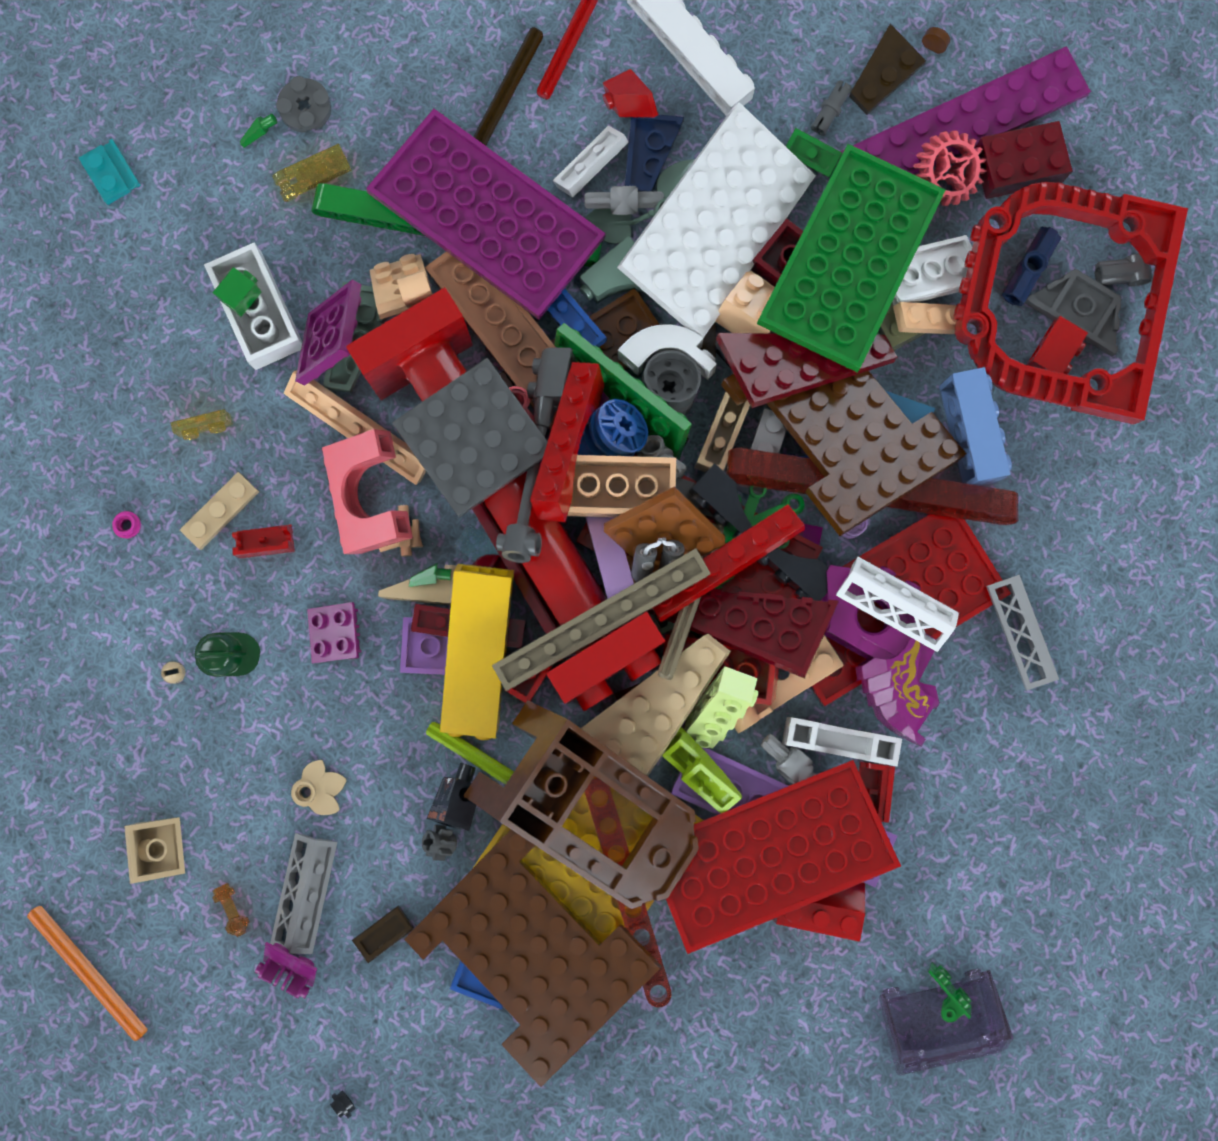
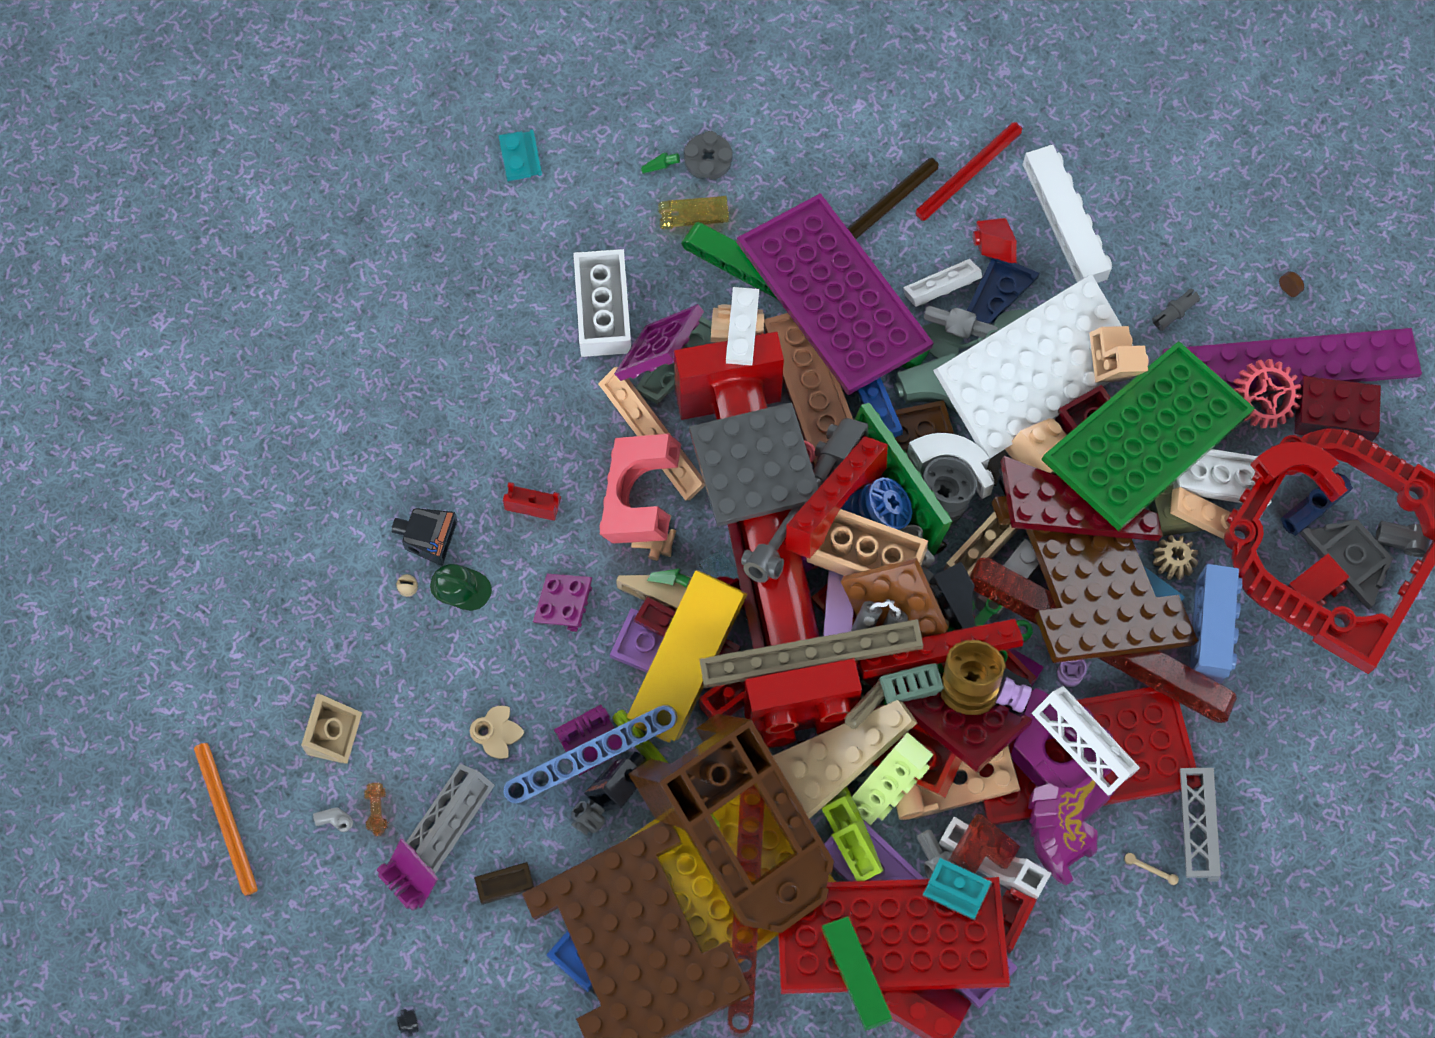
camera: 25 degrees right, 15 degrees down
(119, 520) = (417, 439): dark pink plate -> none
(171, 613) = (427, 533): none -> black torso
(191, 427) = (526, 385): clear yellow plate -> none
(194, 930) = (336, 817): none -> light grey arm
(219, 510) = (503, 462): tan plate -> none
(238, 291) = (595, 282): green brick -> none
(406, 294) = (742, 326): none -> white plate
(412, 762) = (585, 728): none -> magenta hinge
(413, 795) = (578, 759): none -> medium blue beam
(725, 601) = (928, 679): none -> sand green slope
(754, 912) = (856, 973): none -> green tile
(768, 584) = (972, 677): none -> pearl gold wheel
(790, 183) = (1115, 356): none -> light nougat brick
(812, 583) = (1013, 694): none -> lavender wheel
(814, 152) = (1145, 336): green plate -> none
(819, 790) = (957, 888): none -> teal plate
(823, 733) = (981, 841): none -> clear red plate
(886, 70) = (1237, 295): dark brown wing -> none
(903, 371) = (1180, 566): none -> tan gear
(966, 687) = (1131, 859): none -> tan hinge
(1015, 229) = (1304, 459): none -> red arch

